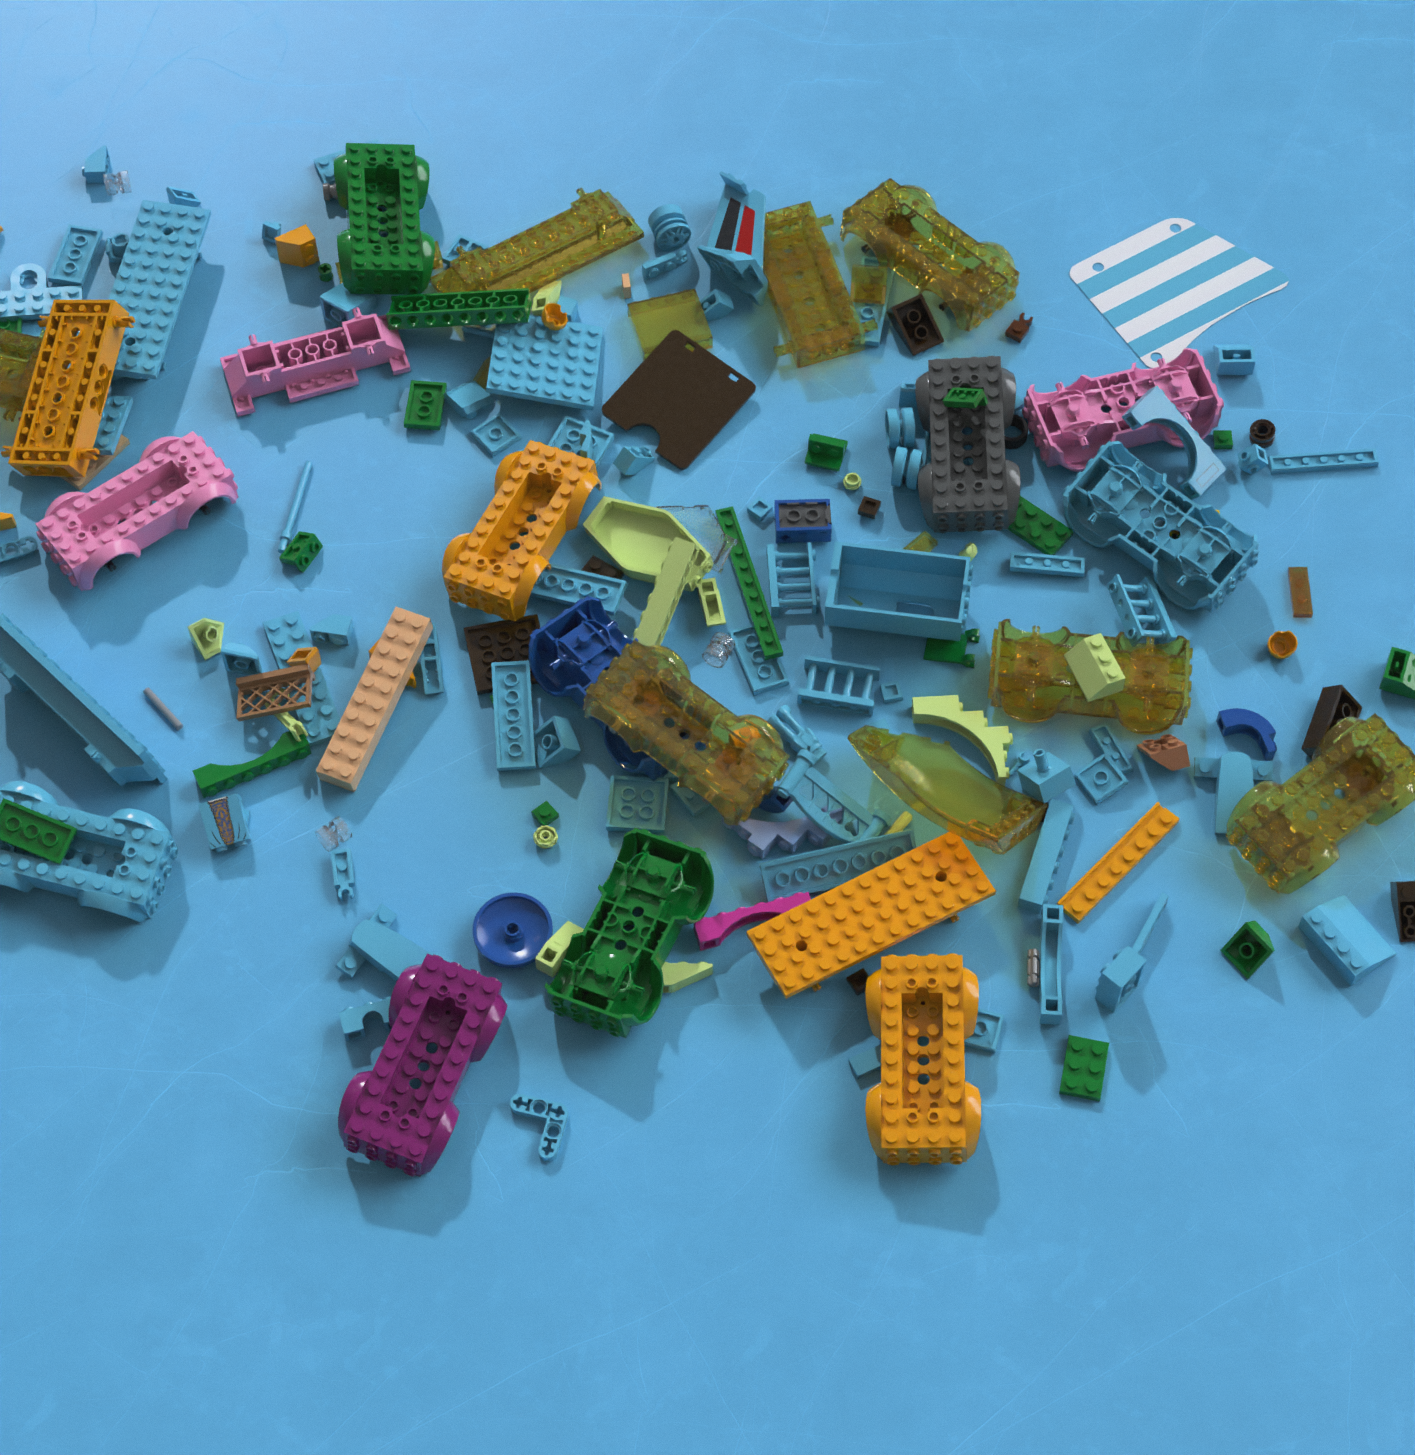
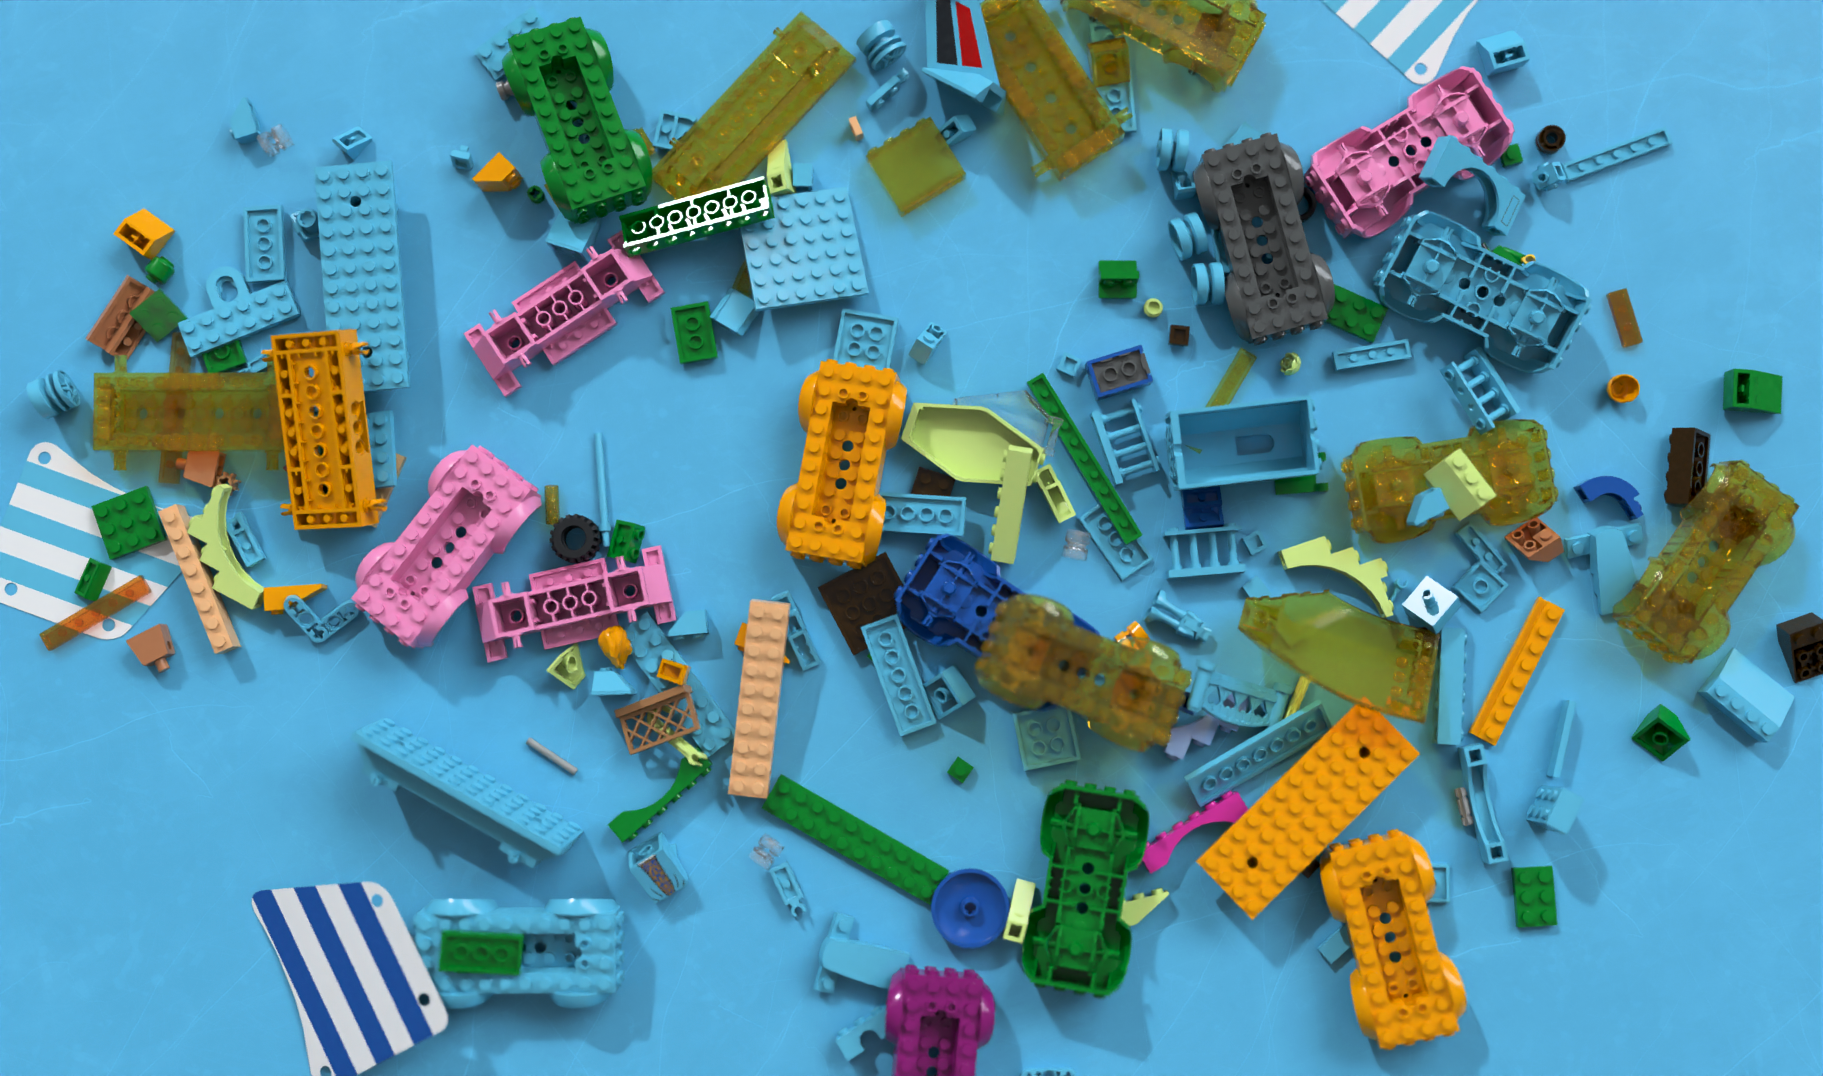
camera: 15 degrees left, 25 degrees up
(234, 586) = (573, 603): none -> bright pink piece
(243, 501) = (552, 503): none -> clear yellow piece
(257, 547) = (559, 538): none -> black tyre
(258, 627) = (615, 645): none -> light orange hair
(420, 846) = (854, 838): none -> green plate
(496, 434) = (777, 347): medium azure tile -> none
(545, 831) = (970, 802): yellowish green plate -> none
(553, 317) = (798, 199): light orange hair -> none
(586, 440) = (878, 346): medium azure slope -> none
(680, 397) = (953, 255): dark brown door -> none
(850, 648) = (1202, 508): none -> blue slope
(905, 360) = (1172, 151): none -> medium azure wheel
(915, 324) = (1167, 97): dark brown slope -> none
(965, 398) = (1254, 197): green bracket -> none
(1019, 329) = (1273, 72): reddish brown plate -> none
(1059, 677) = (1427, 505): none -> medium azure slope

